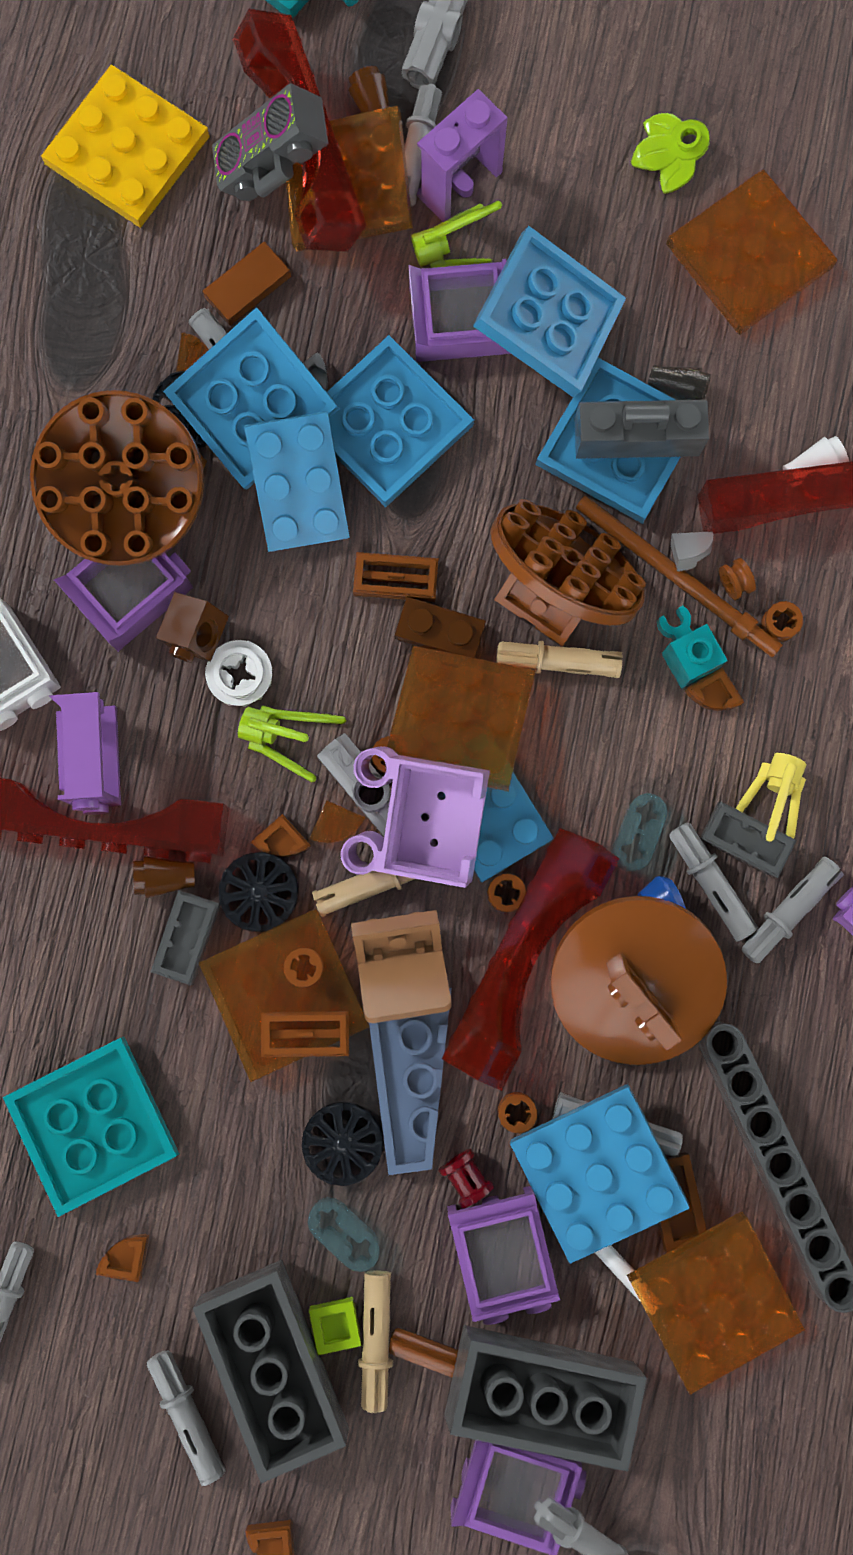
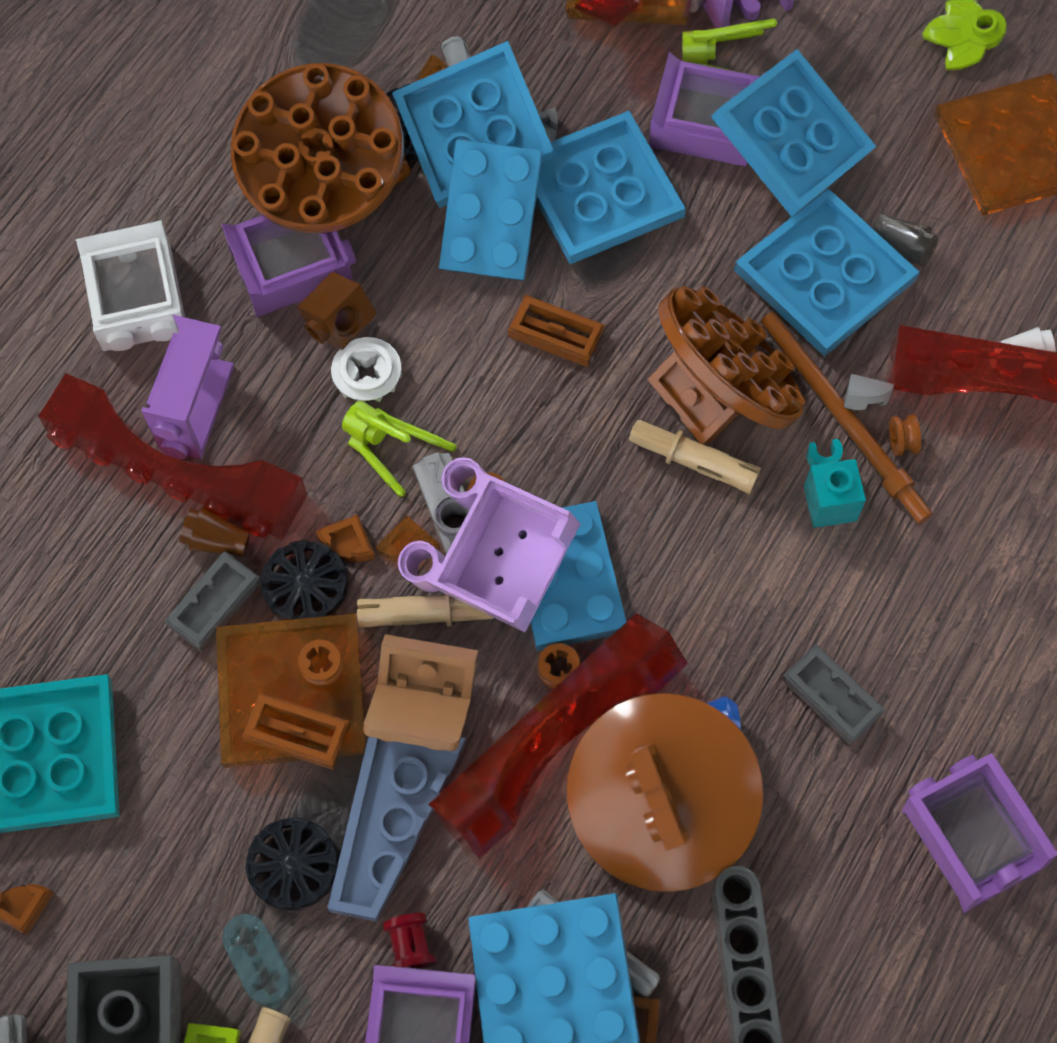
camera: 20 degrees right, 15 degrees down
(246, 283) = (519, 26): dark orange tile -> none
(439, 628) = (582, 392): reddish brown plate -> none
(462, 712) = (580, 469): clear orange plate -> none
(515, 1099) = (492, 880): dark orange bush -> none
(641, 429) = (847, 259): dark grey piece -> none
(649, 835) = (727, 658): clear light blue beam -> none
(713, 881) = (782, 725): light grey axle -> none
(715, 692) = (847, 540): dark orange tile -> none
(777, 609) = (941, 479): dark orange bush -> none
(785, 779) = (890, 644): light yellow plant -> none
(792, 909) = (857, 782): light grey axle -> none

